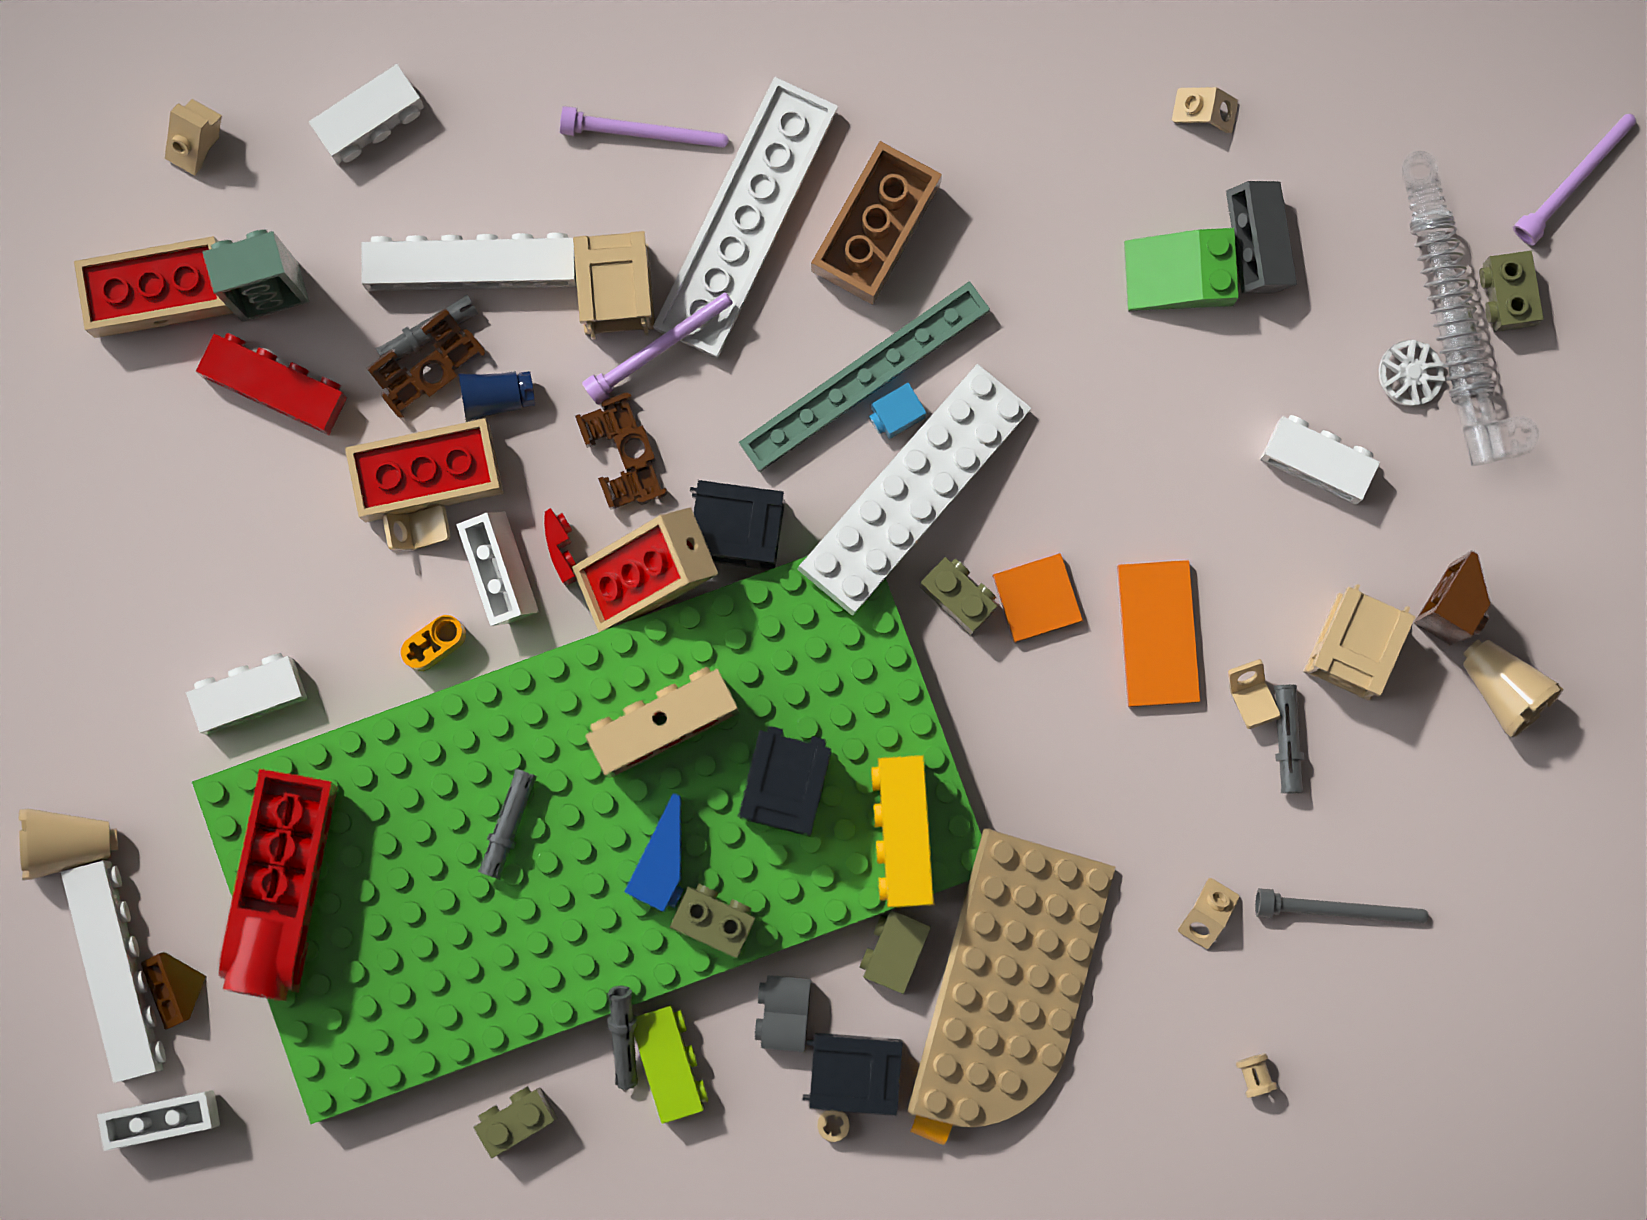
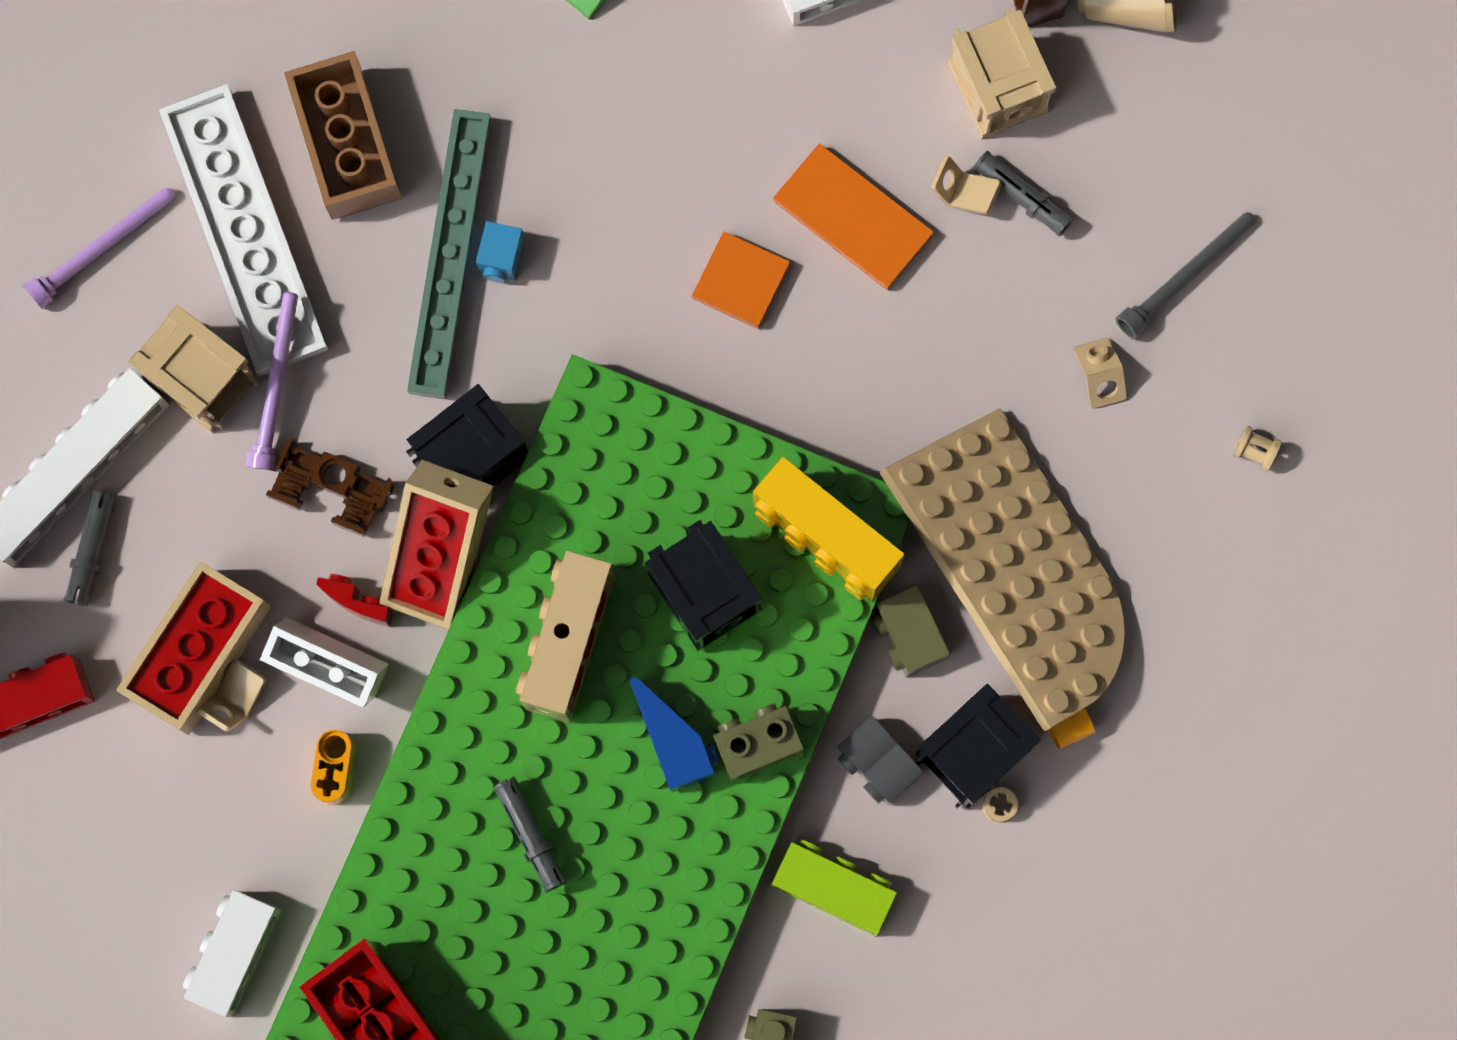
camera: 45 degrees left, 5 degrees down
(405, 388) = (127, 541): reddish brown piece -> none
(495, 393) = (188, 539): dark blue plant -> none
(622, 1025) = (770, 891): dark grey pin -> none
(914, 489) = (571, 292): white plate -> none
(958, 595) = (683, 333): olive brick -> none

